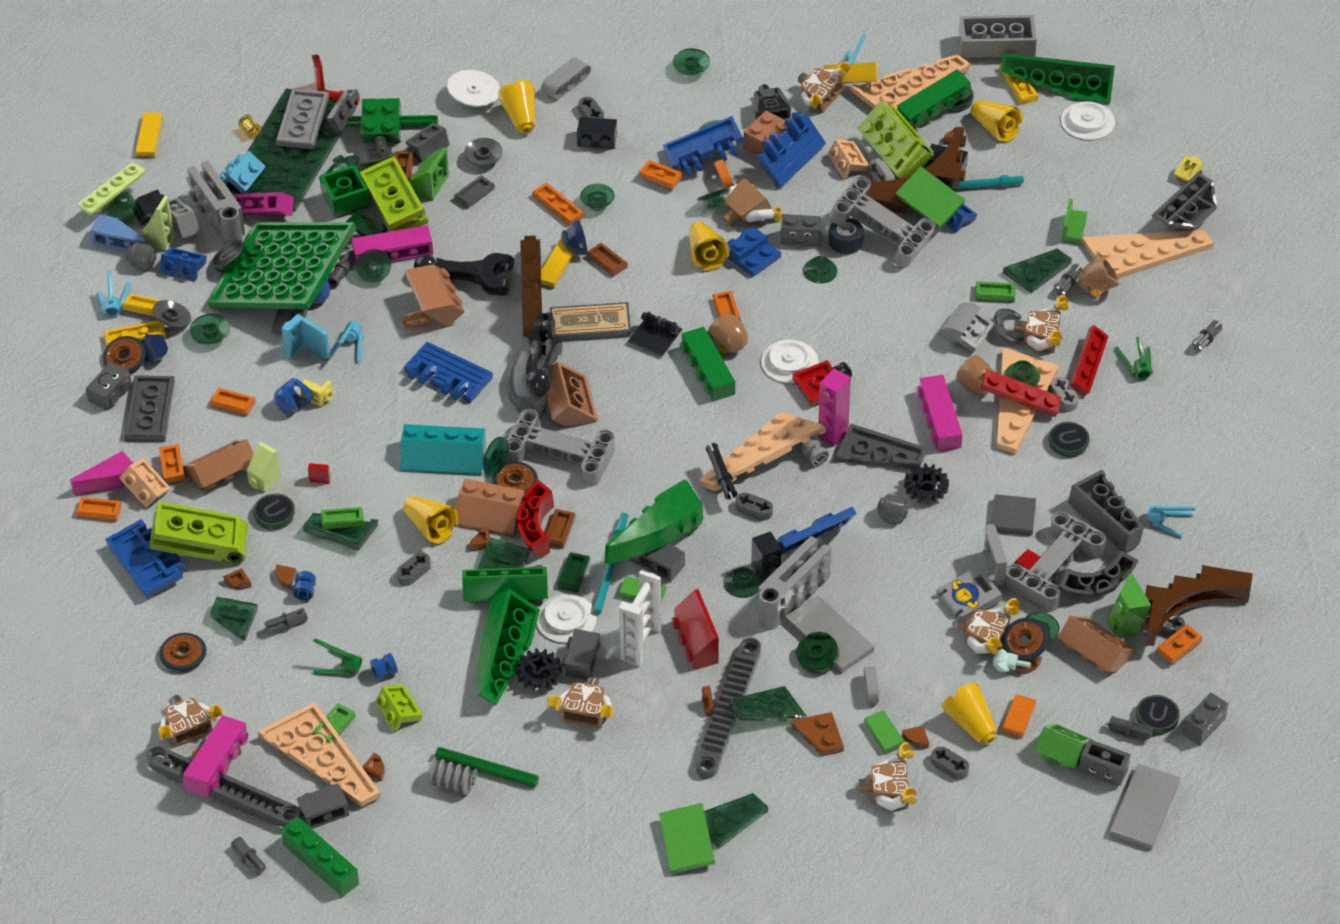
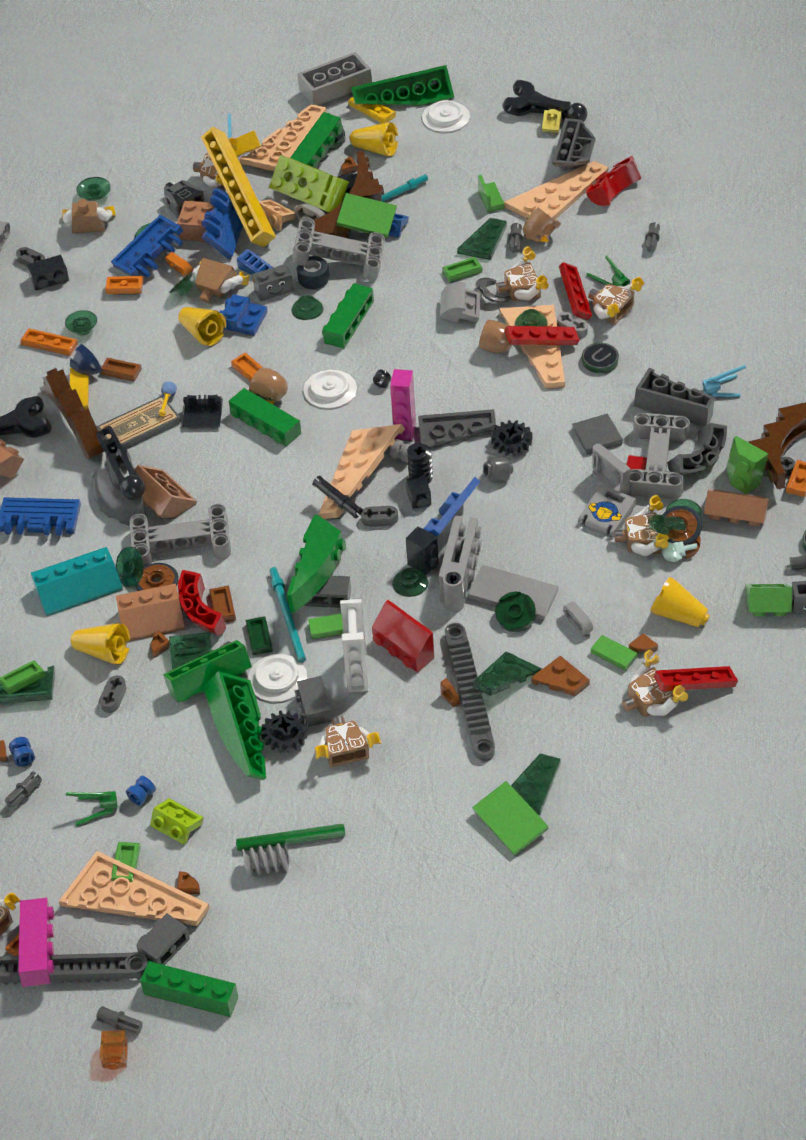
camera: 25 degrees left, 0 degrees up
(229, 877) = (114, 1049): none -> clear orange brick
(636, 299) = (168, 391): none -> medium blue hinge
(667, 90) = (87, 216): none -> medium nougat torso
(792, 195) = (247, 258): none -> blue slope
(803, 498) = (418, 491): none -> black brick
(809, 380) = (367, 395): red plate -> none
(819, 472) = (420, 461): none -> black piece
(822, 117) = (238, 187): none -> yellow brick
(851, 294) = (348, 315): none -> green brick
(938, 789) = (696, 678): none -> red plate
(940, 413) = (484, 378): dark pink brick -> none
(950, 762) = (685, 654): dark grey beam -> none
(1004, 629) = (665, 524): none -> clear green plate
(1019, 715) = (714, 590): orange tile -> none
(1120, 387) = (614, 301): none -> torso
(1182, 139) = (534, 102): none -> black piece
(1205, 261) = (611, 183): none -> red brick

